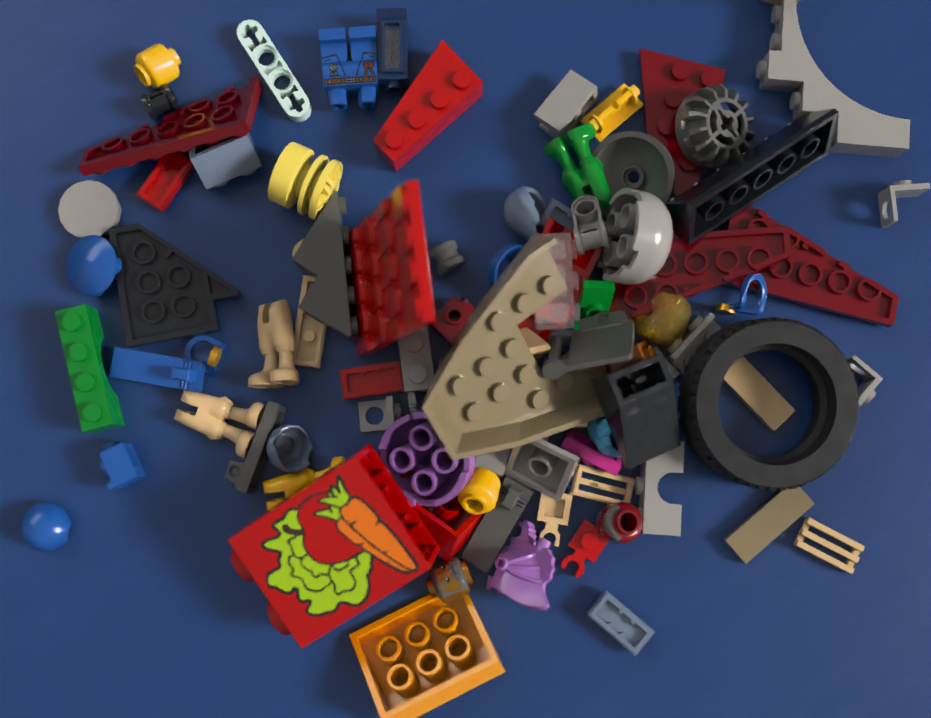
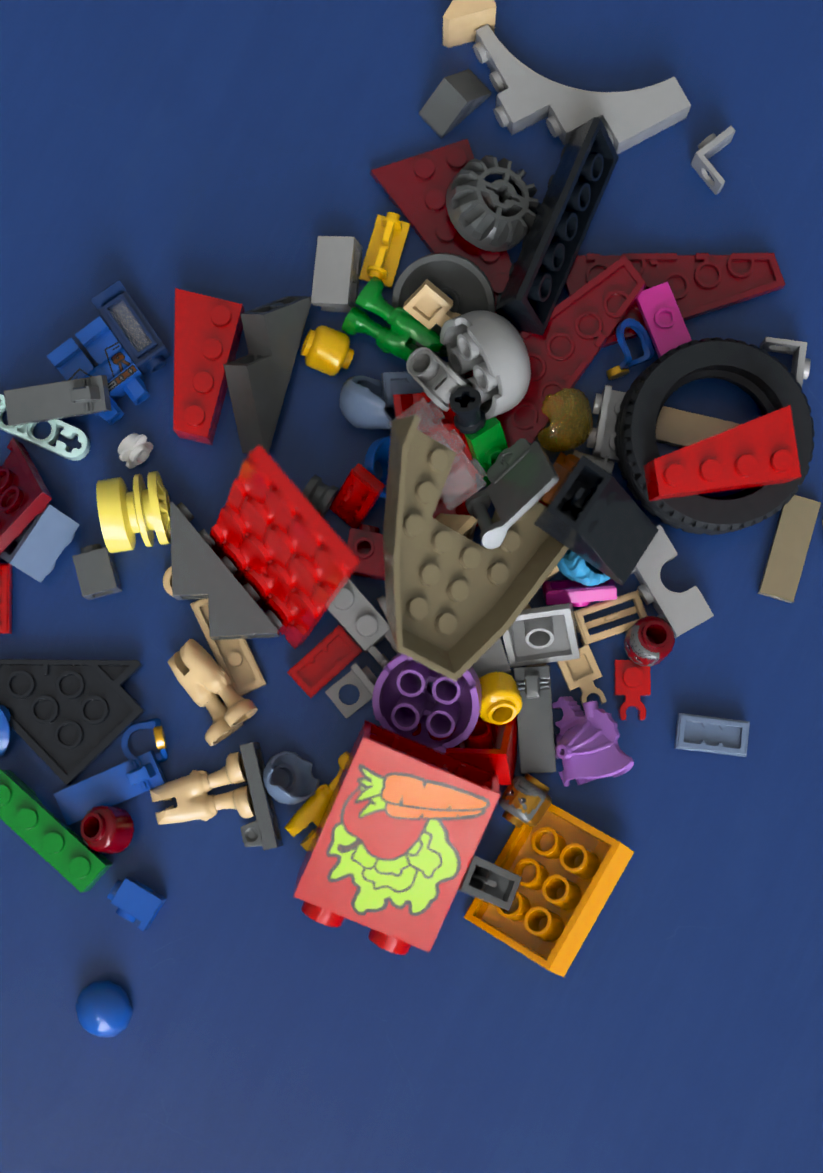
camera: 25 degrees left, 0 degrees up
(133, 398) = (107, 829): none -> dark red head
(251, 208) = (96, 572): none -> dark grey brick
(304, 66) = (57, 400): none -> dark grey hinge
(337, 138) = (134, 450): none -> white plate
(382, 625) = (490, 883): none -> dark grey slope
(462, 145) = (261, 378): none -> dark grey slope
(474, 275) = (357, 496): none -> red plate
(523, 156) = (327, 350): none -> yellow head
(598, 258) = (466, 405): none -> black bush
(619, 169) = (430, 305): none -> tan plate
(733, 37) = (453, 101): none -> dark grey slope
(778, 431) = (738, 458): none -> red wedge
(785, 290) = (662, 318): none -> dark pink plate

